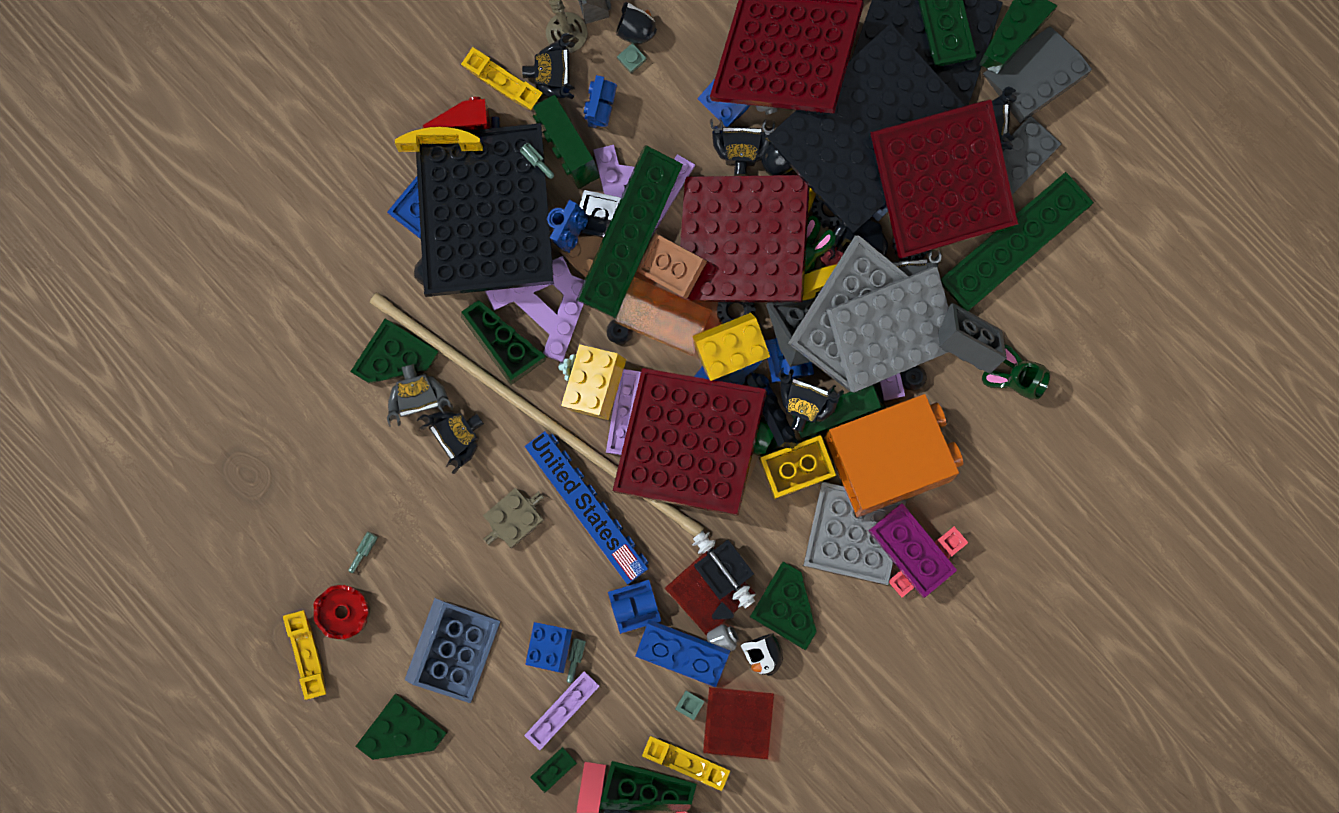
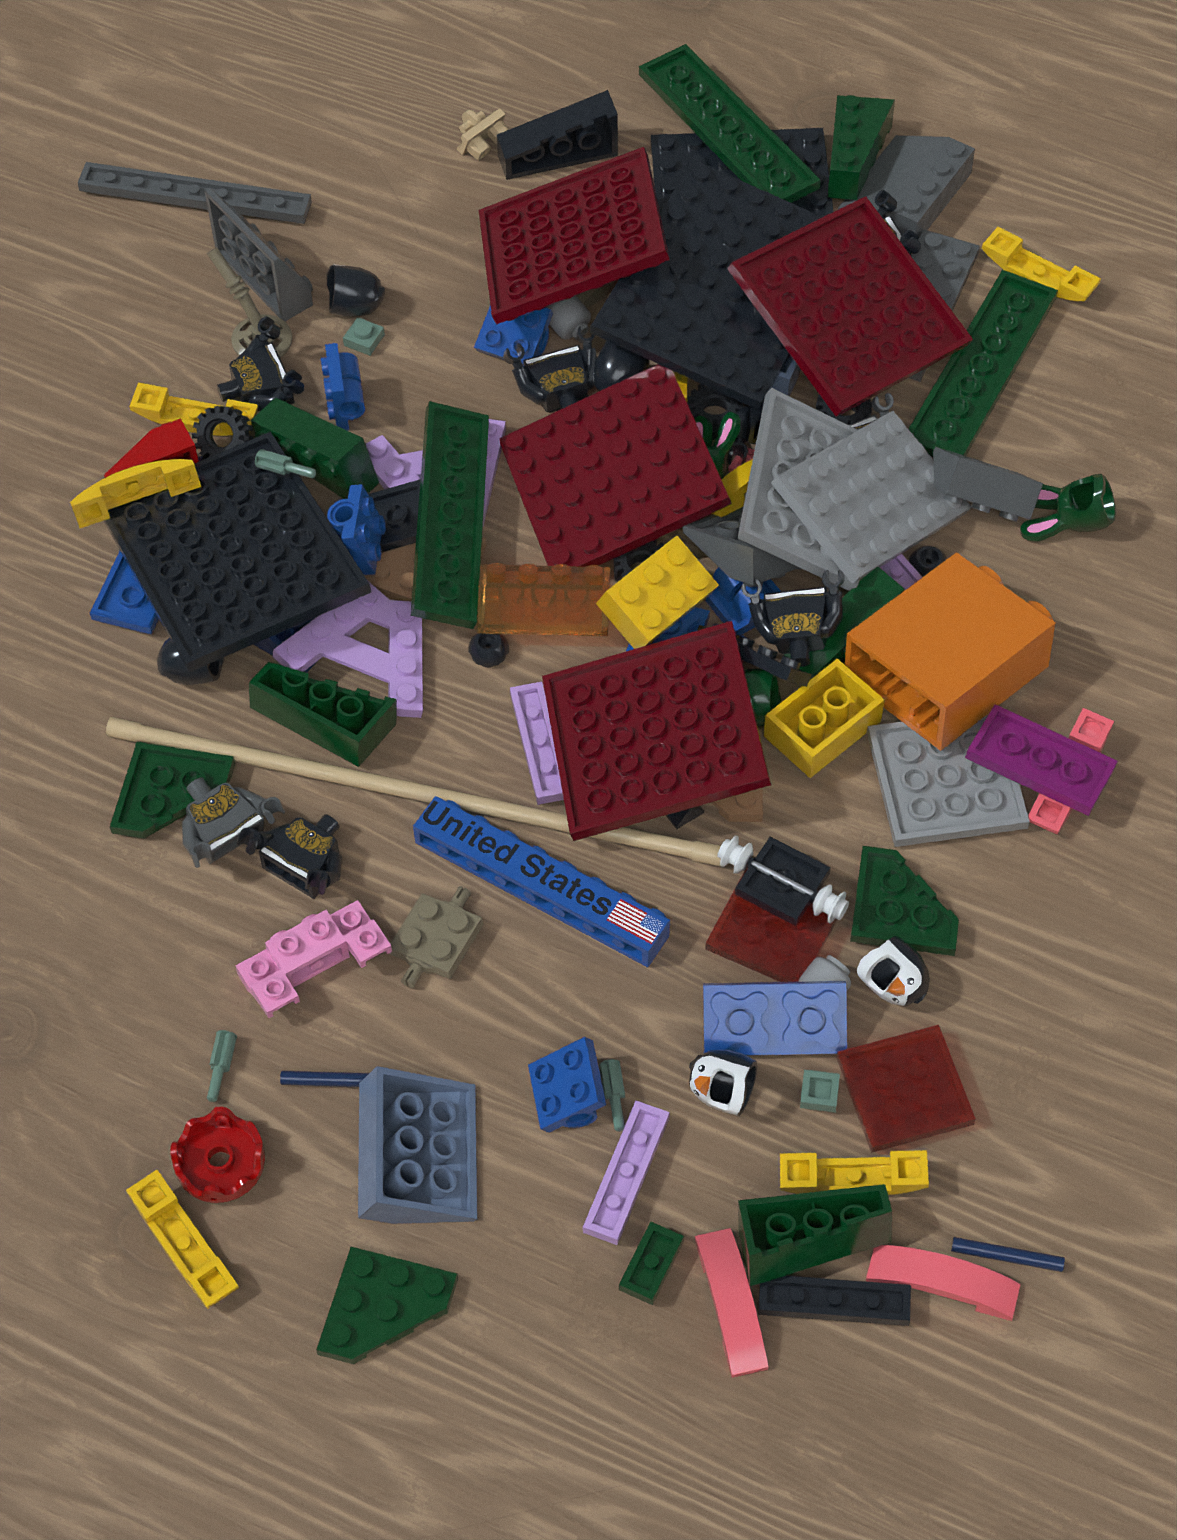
camera: 20 degrees left, 25 degrees down
(423, 586) = (311, 1078): none -> dark blue bar
(436, 499) = (307, 951): none -> bright pink bracket
(520, 104) = (211, 419): none -> black tyre
(566, 366) = (437, 713): light aqua plant -> none
(593, 382) = (480, 712): yellow brick -> none
(634, 606) = (670, 985): blue plate -> none
(636, 680) = (723, 1080): none -> piece
(671, 266) = (529, 534): nougat plate -> none
(722, 612) = (810, 935): black slope -> none
(1090, 179) = (1008, 253): none -> yellow slope

